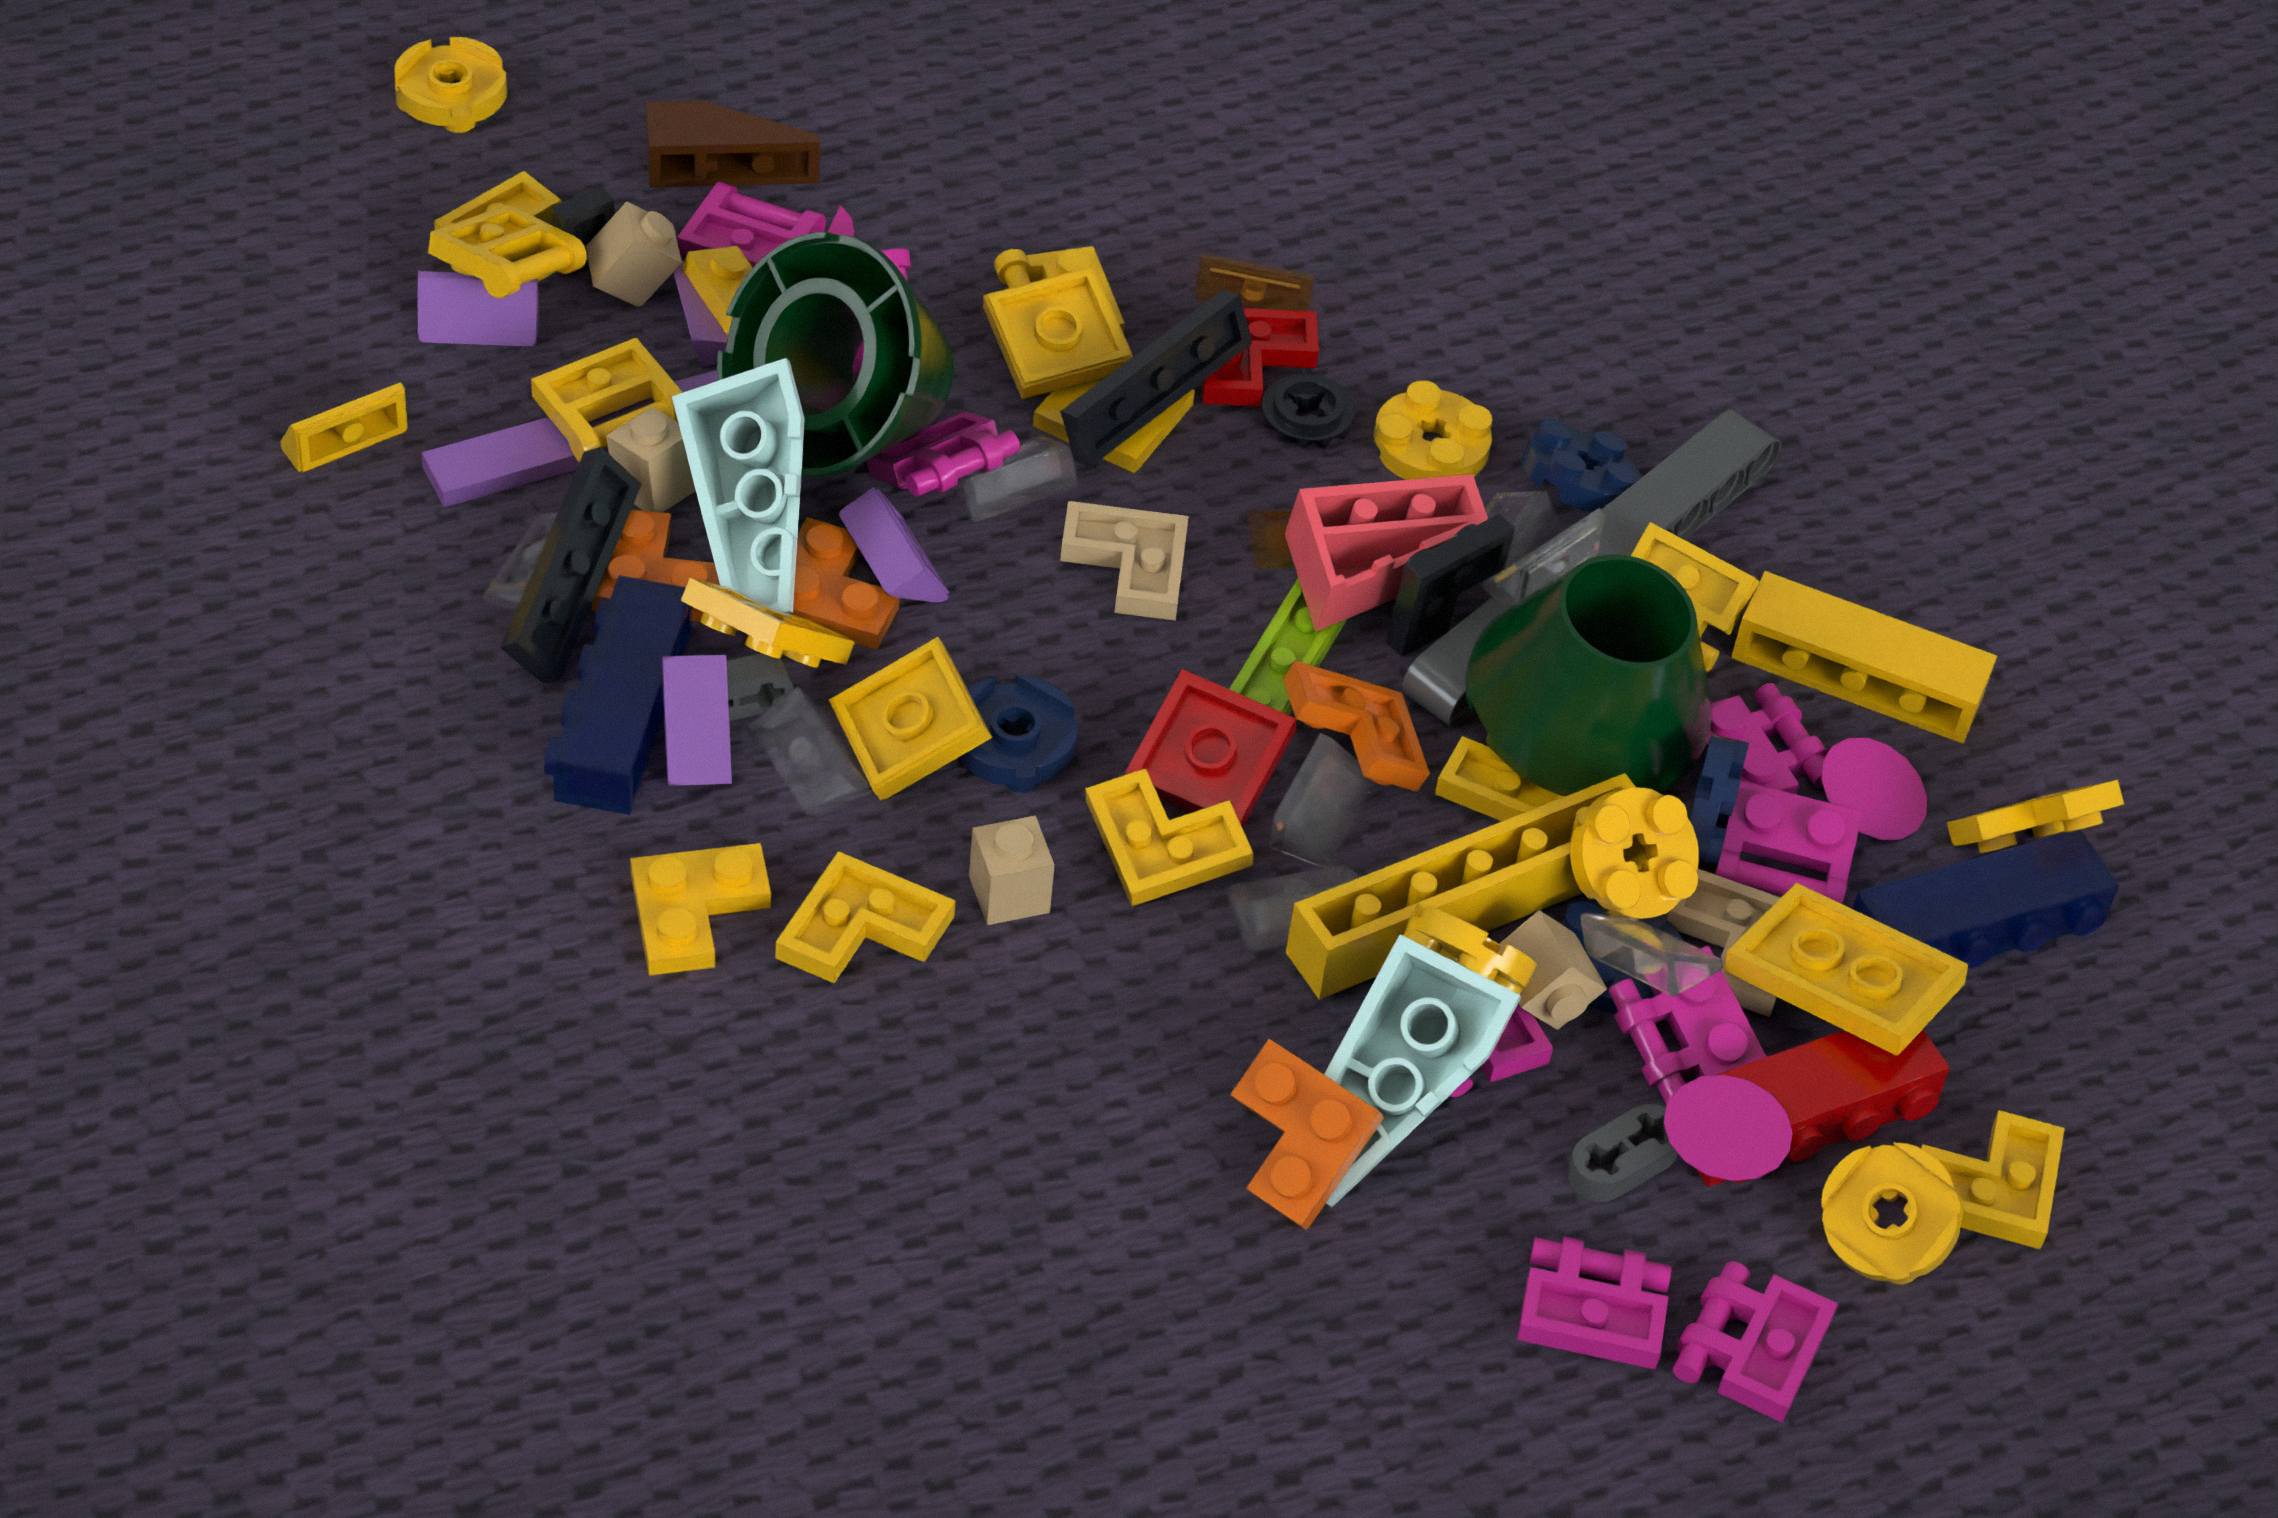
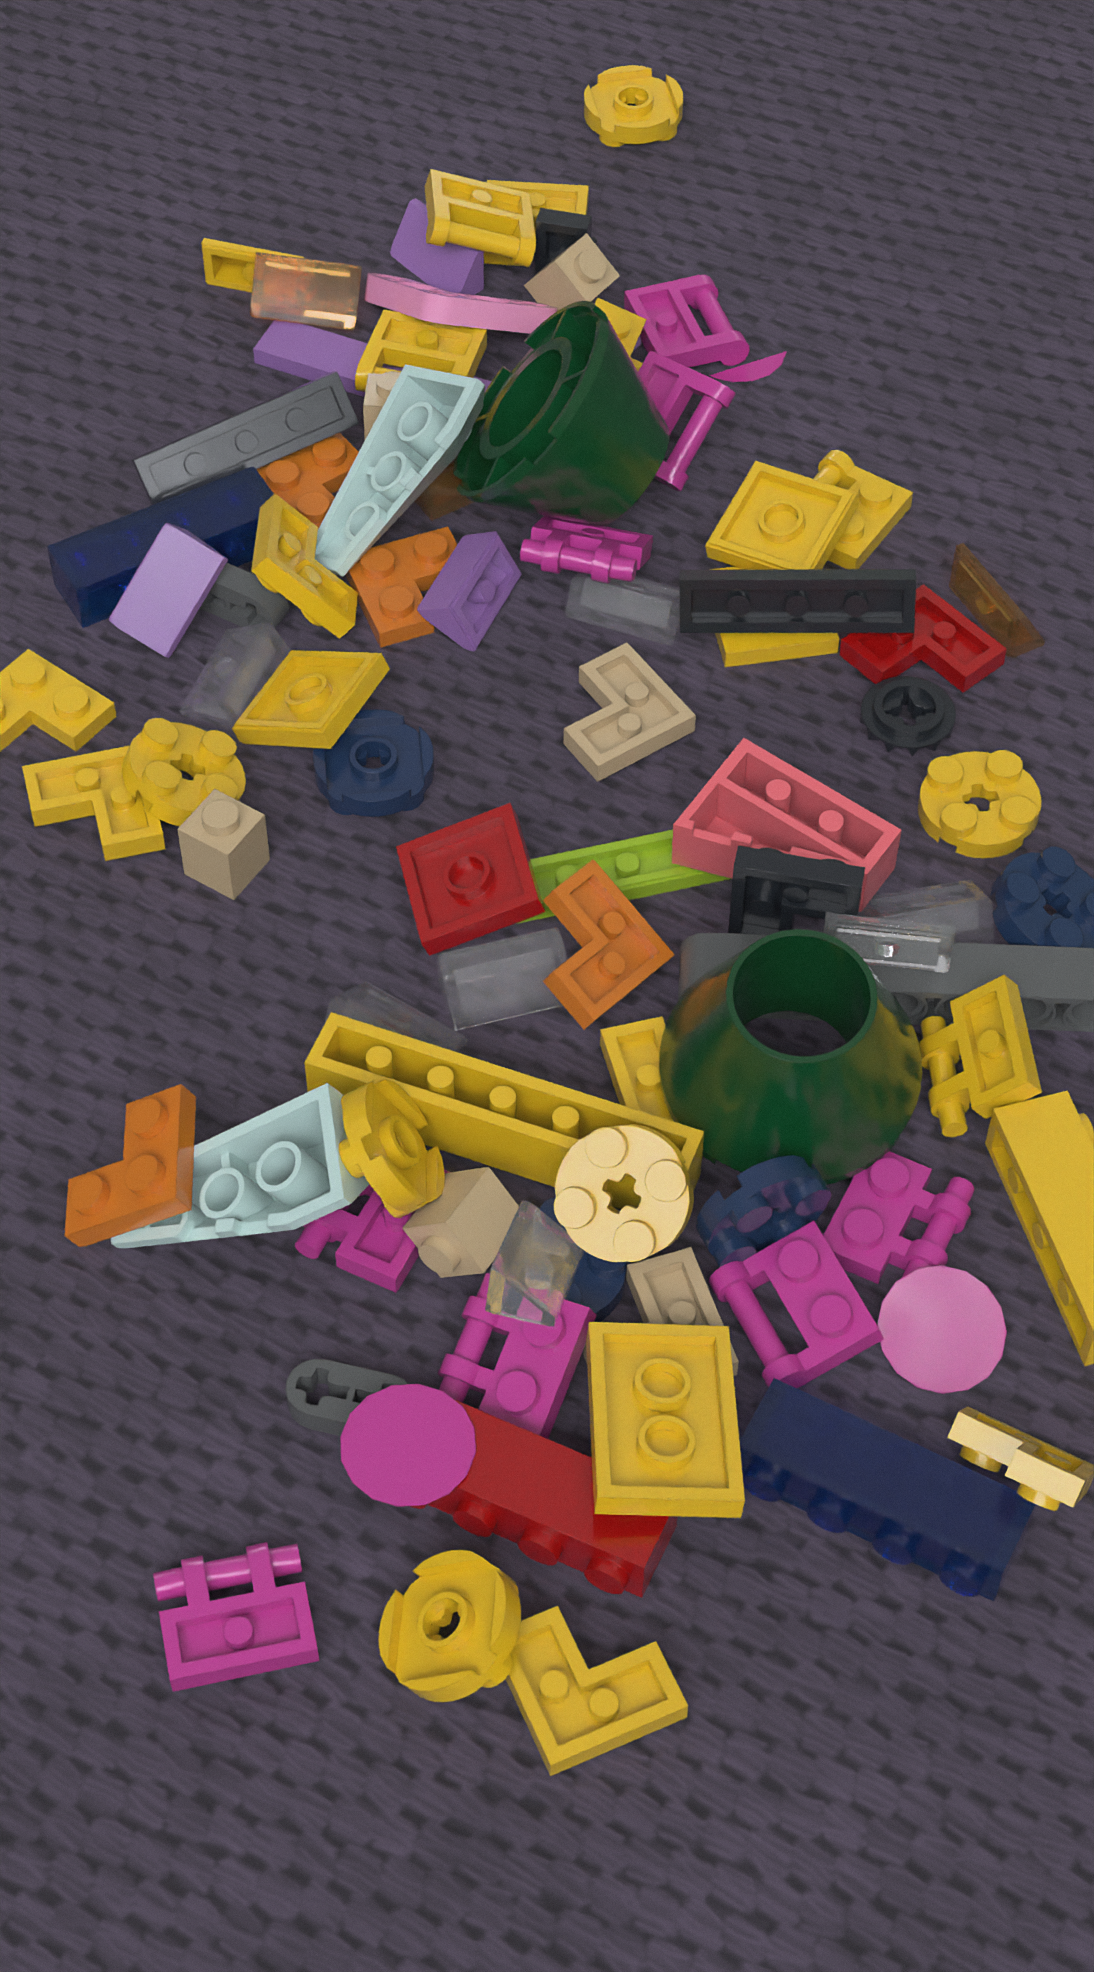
camera: 55 degrees right, 5 degrees up
(428, 414) = (305, 291): none -> clear orange slope
(589, 339) = (454, 308): none -> bright pink beam
(709, 144) = (740, 252): reddish brown slope -> none
(905, 843) = (168, 747): none -> yellow plate
(1159, 853) = (341, 909): yellow plate -> none
(1594, 1315) = (150, 1485): dark pink plate -> none

